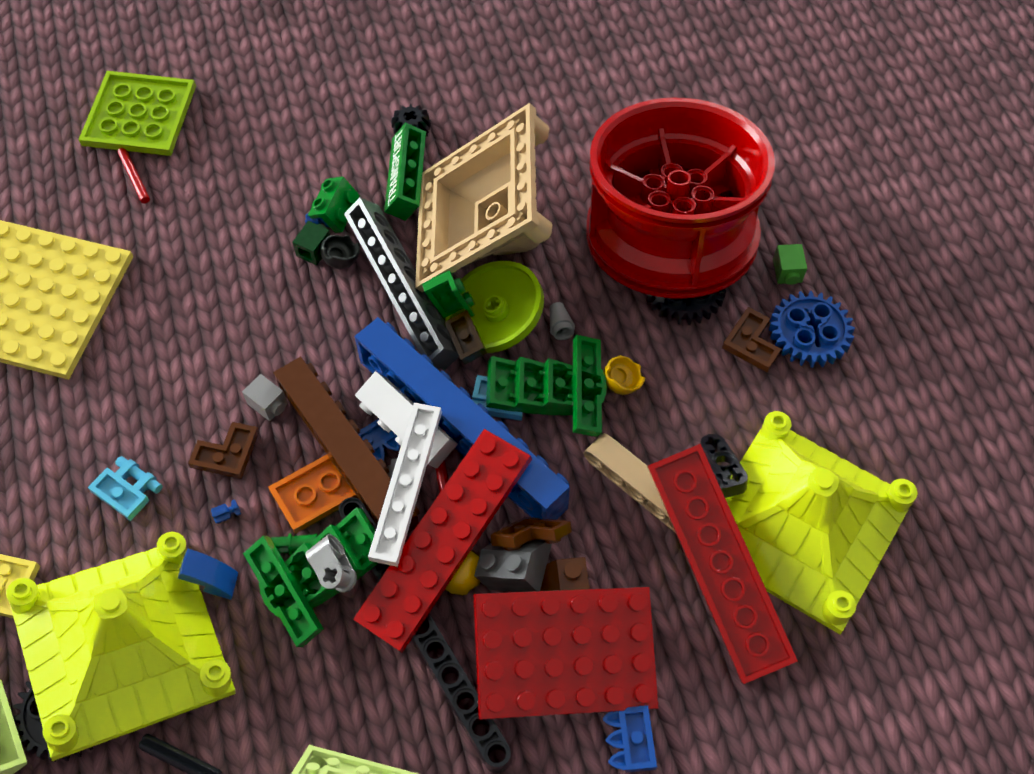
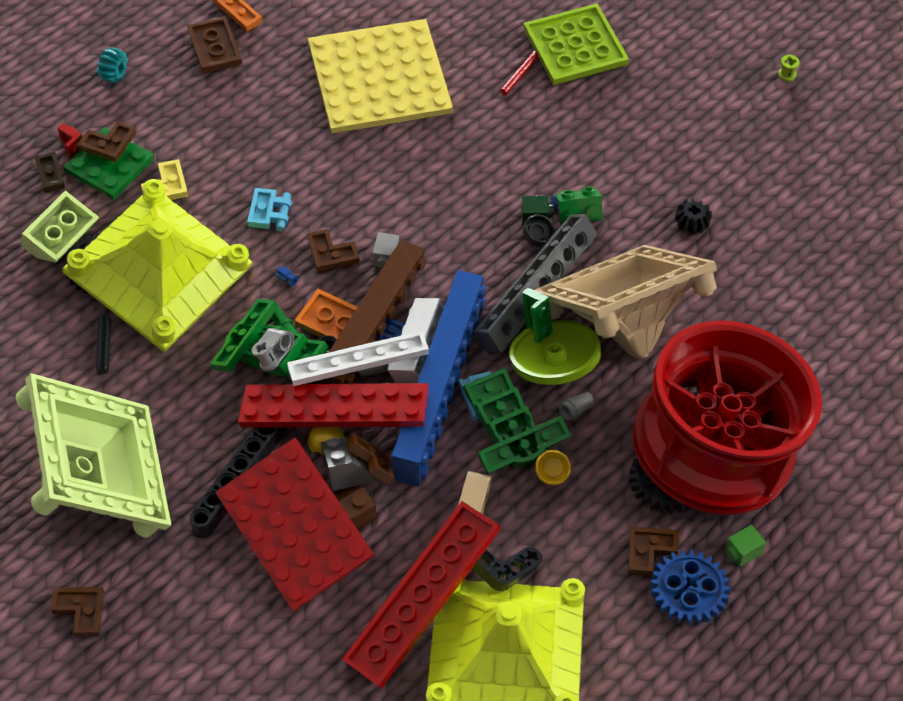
camera: 60 degrees right, 5 degrees down
(209, 572) = (233, 287): blue slope -> none
(405, 172) = (640, 234): green brick -> none
(465, 337) = (511, 344): dark brown plate -> none
(633, 737) = (260, 603): blue plate -> none

